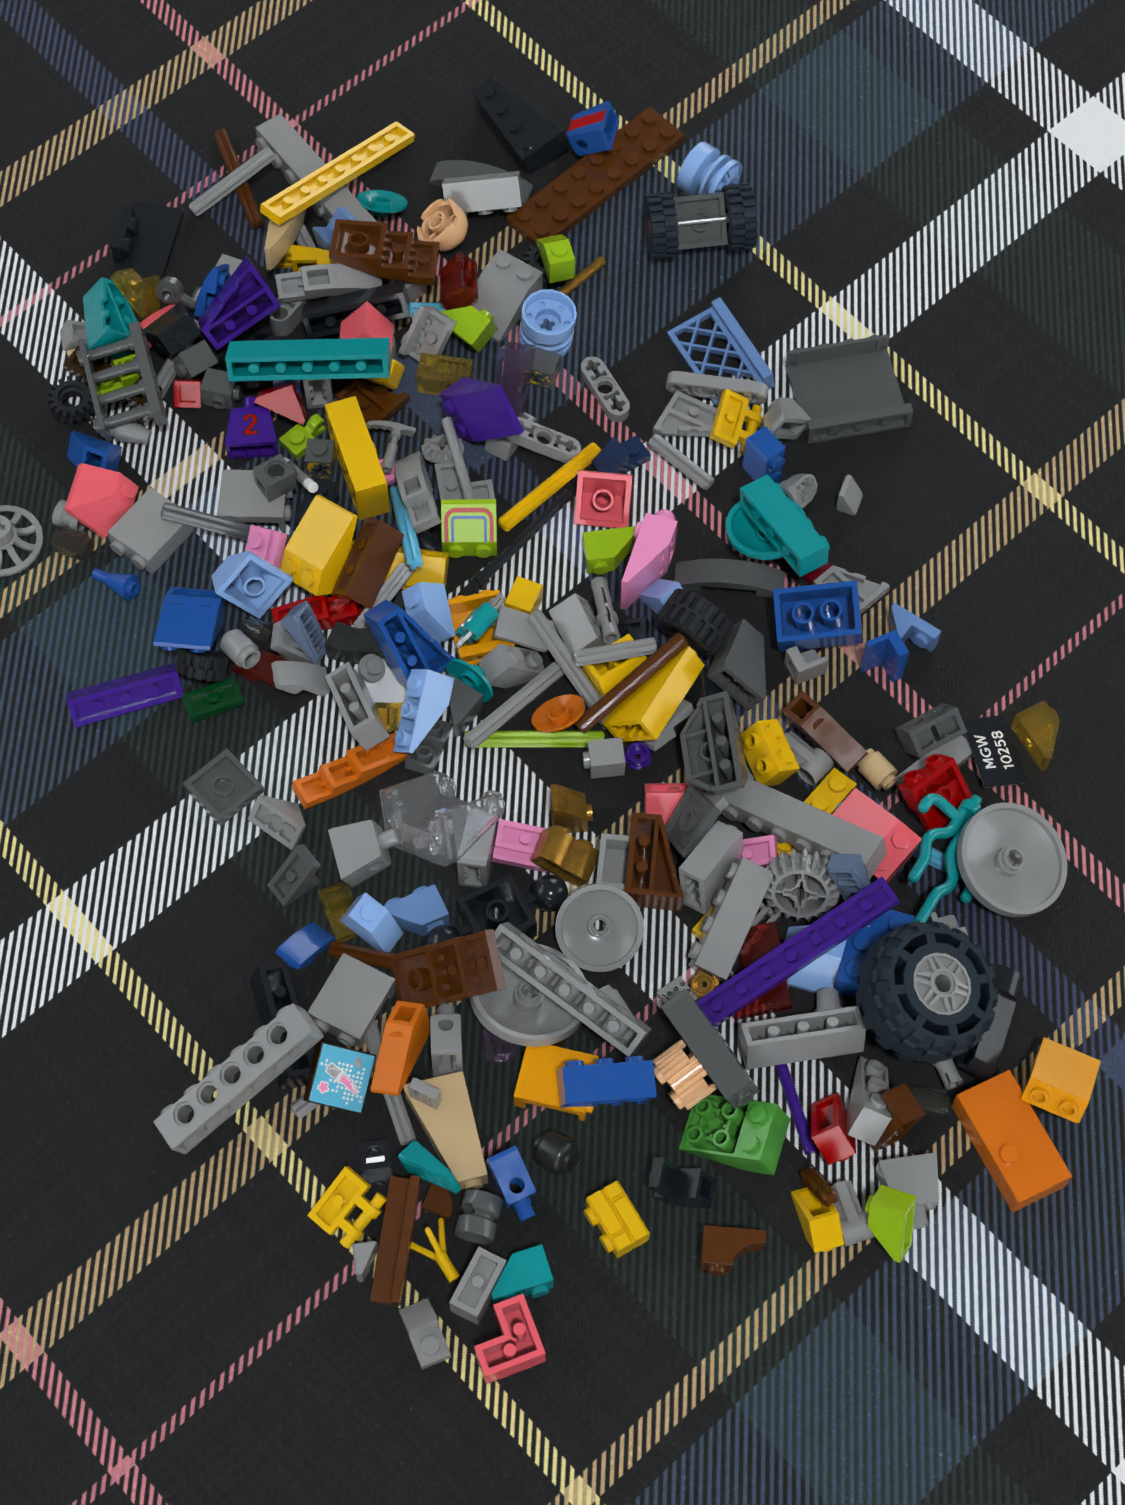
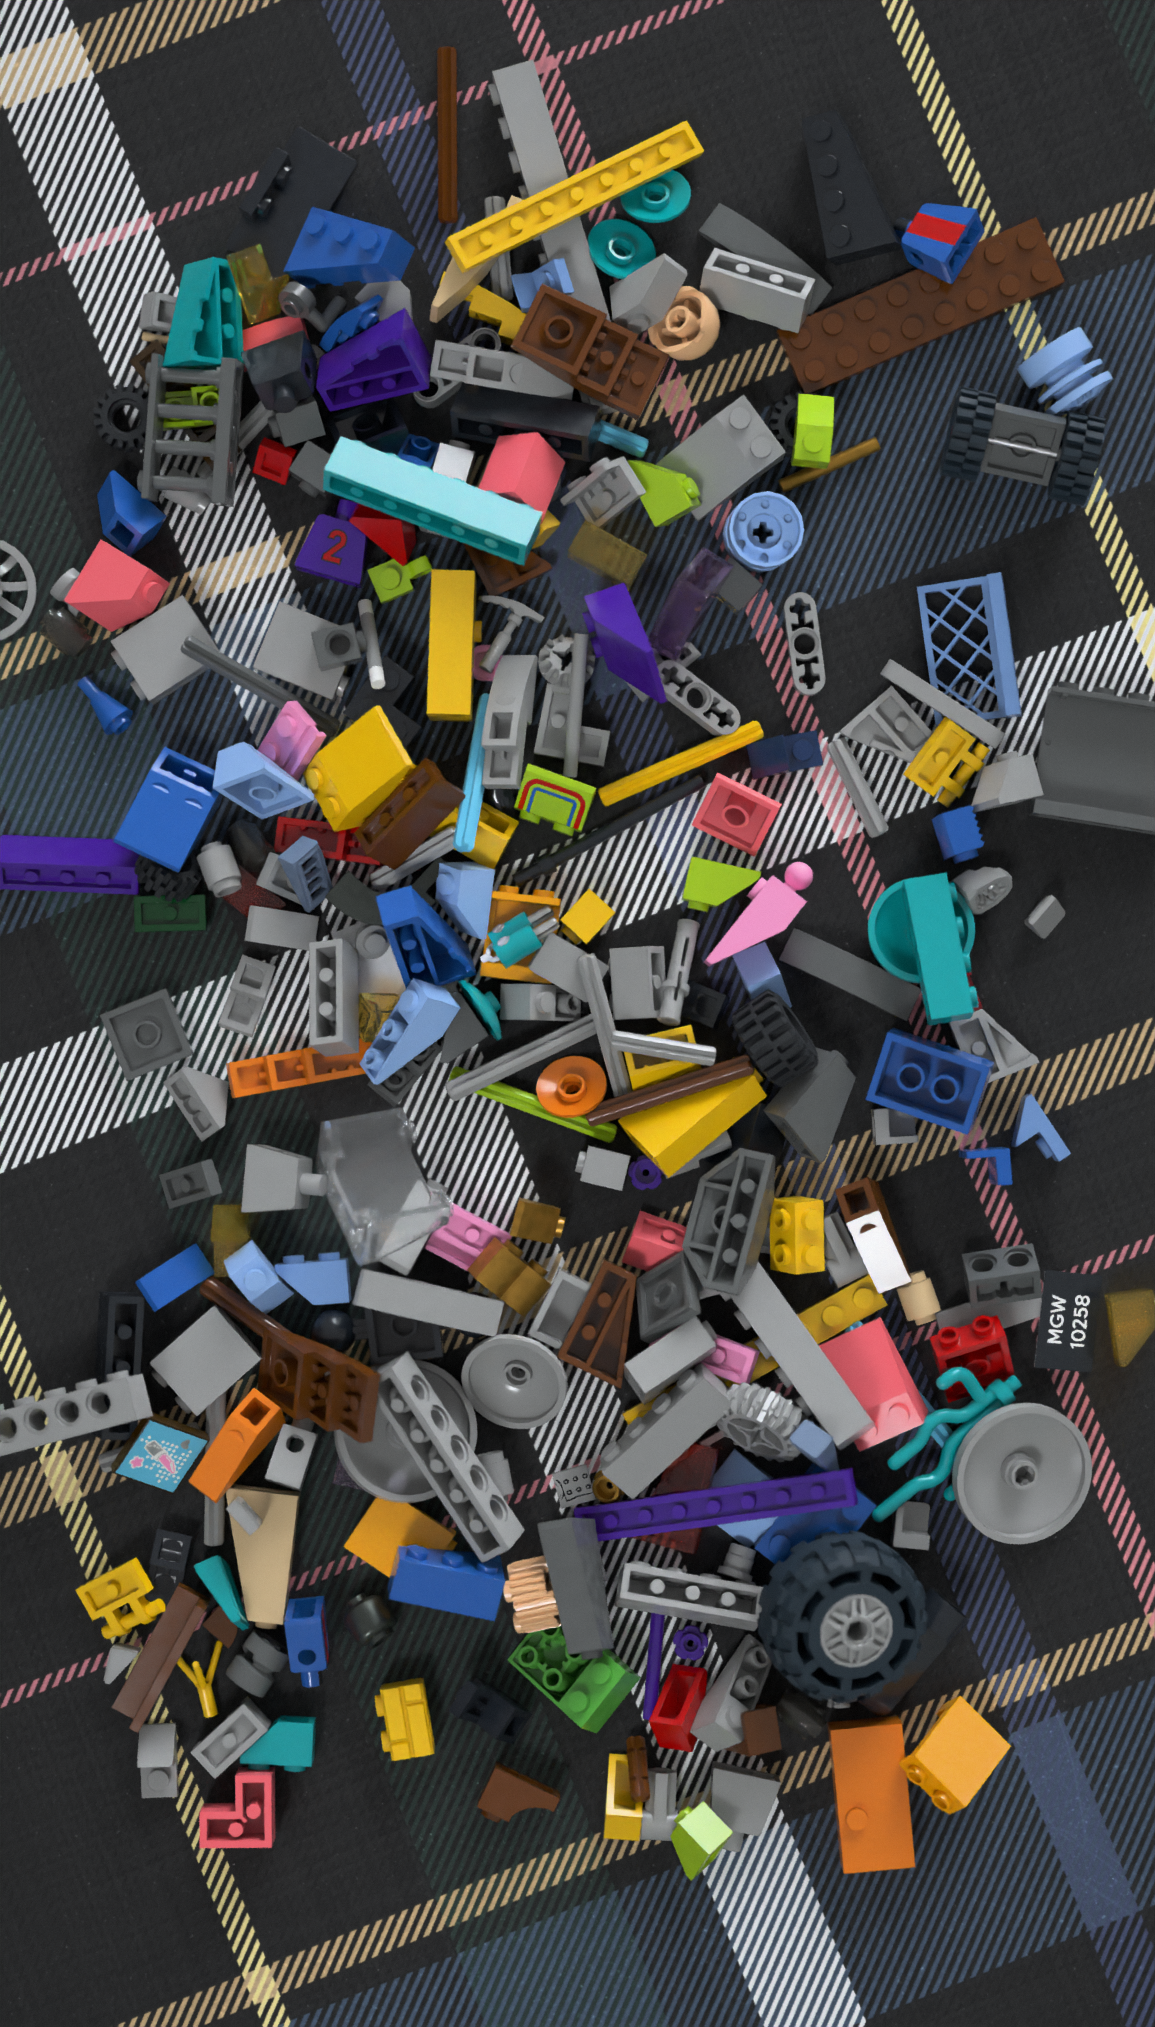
camera: 20 degrees right, 25 degrees up
(195, 247) = (346, 250): none -> blue wedge
(232, 181) = (434, 146): light grey axle -> none
(291, 737) = (247, 996): none -> light grey slope
(320, 458) = (408, 623): dark grey brick -> none
(394, 166) = (658, 199): none -> teal dish
(410, 211) = (646, 294): none -> light grey slope
(459, 282) = (673, 424): clear red brick -> none
(507, 880) = (428, 1302): none -> light grey slope
(814, 1087) = (693, 1633): none -> dark purple plate

